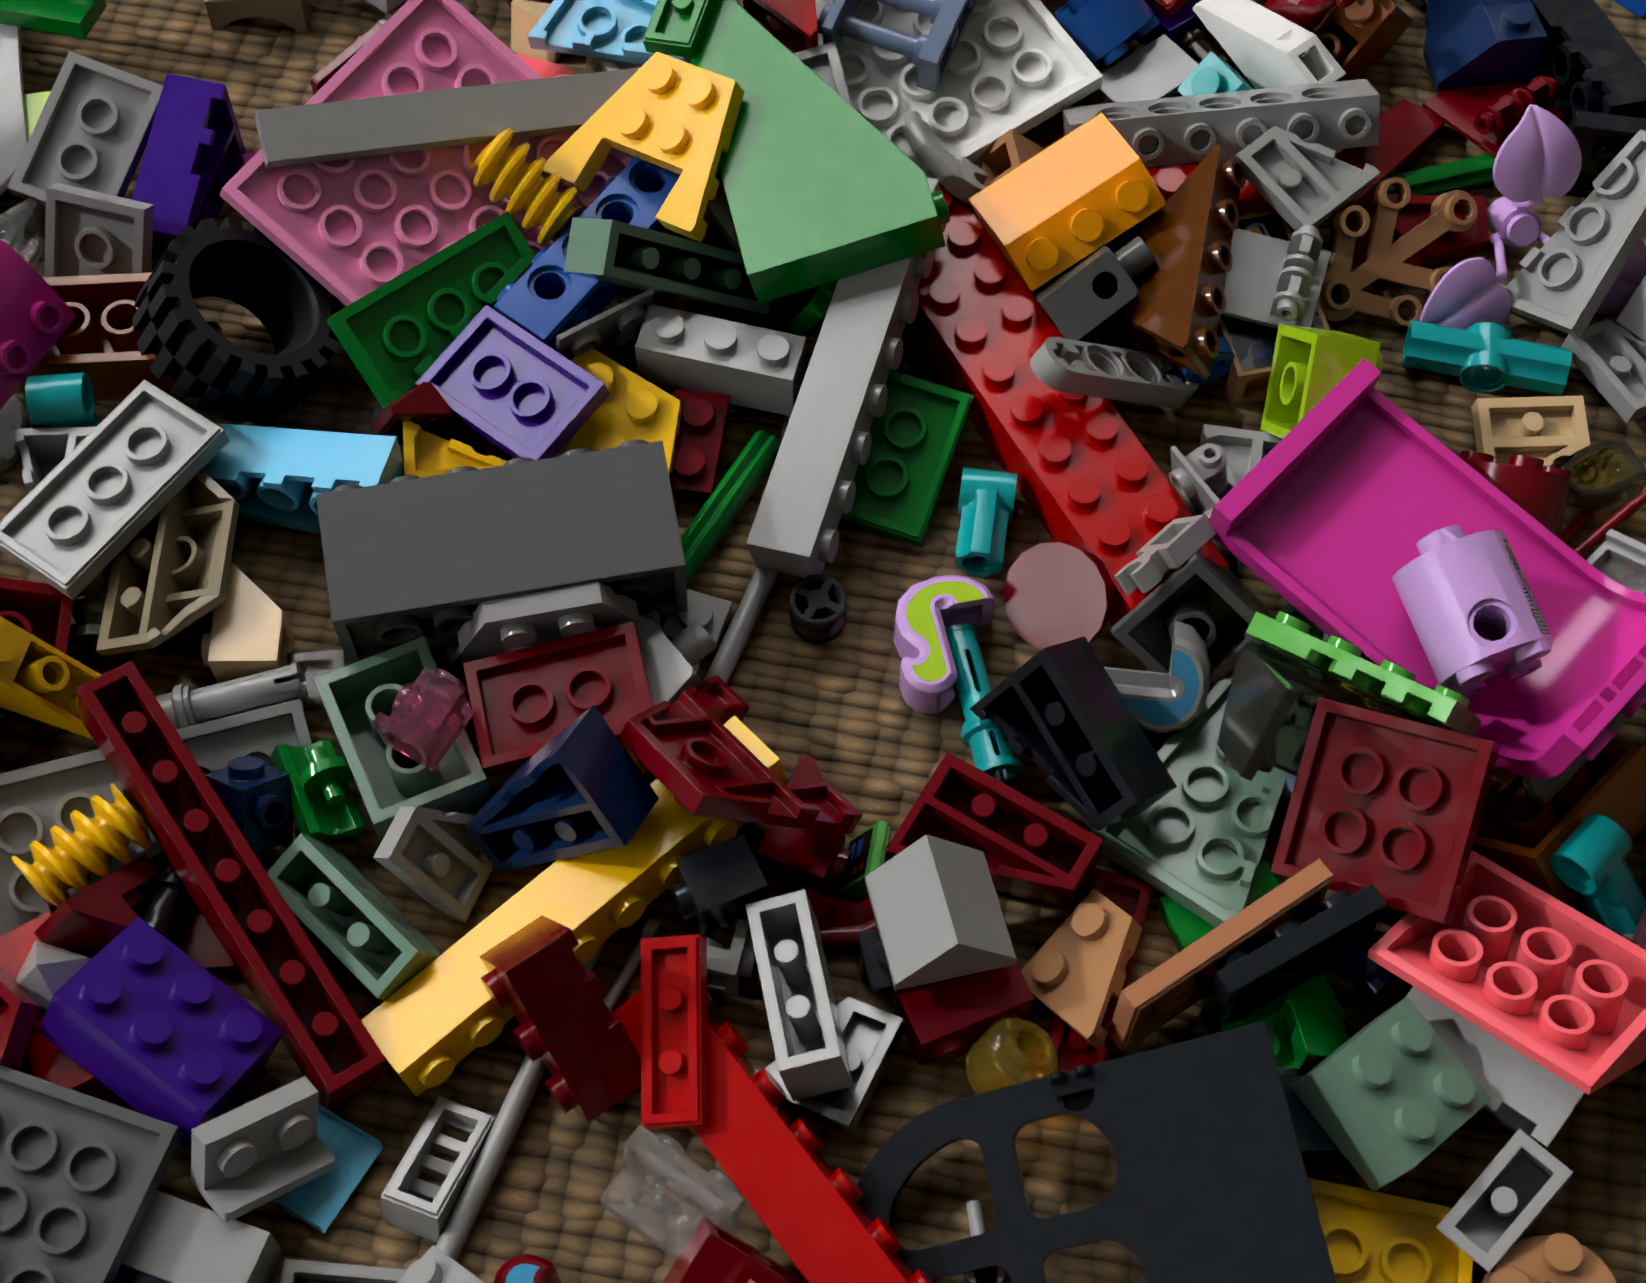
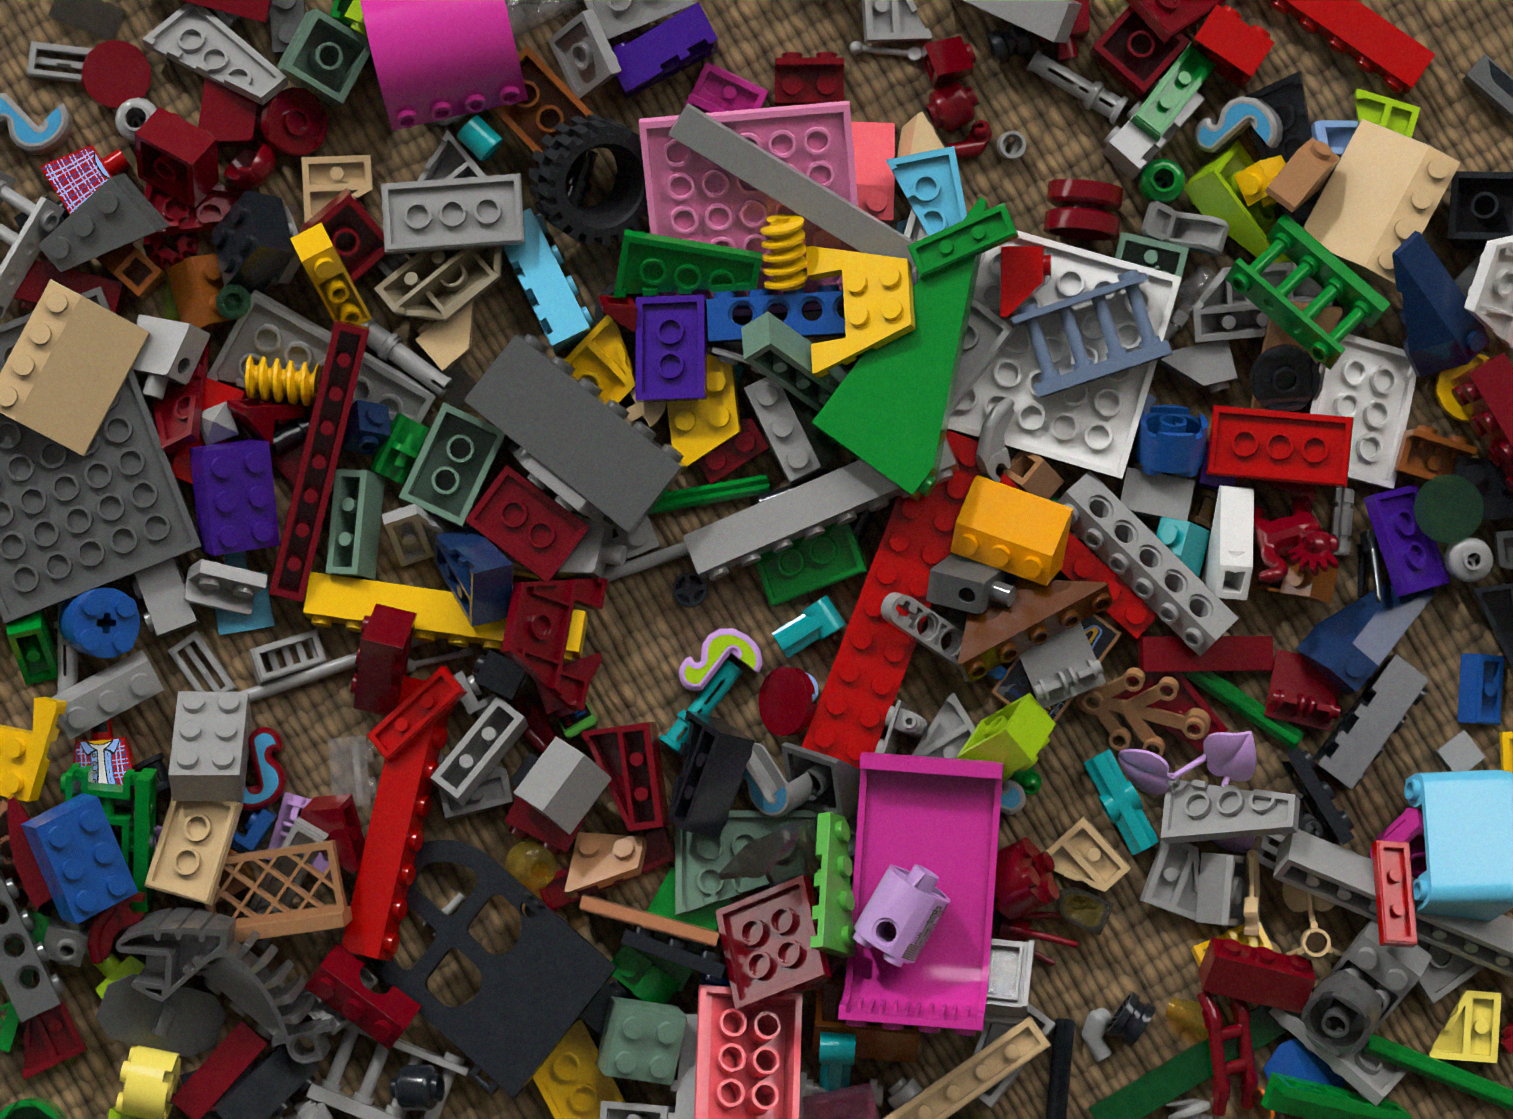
camera: 40 degrees right, 25 degrees up
(426, 717) = (462, 478): clear pink brick -> none
(1166, 550) = (837, 742): light grey plate -> none
(1302, 177) = (1134, 637): light grey wing -> none

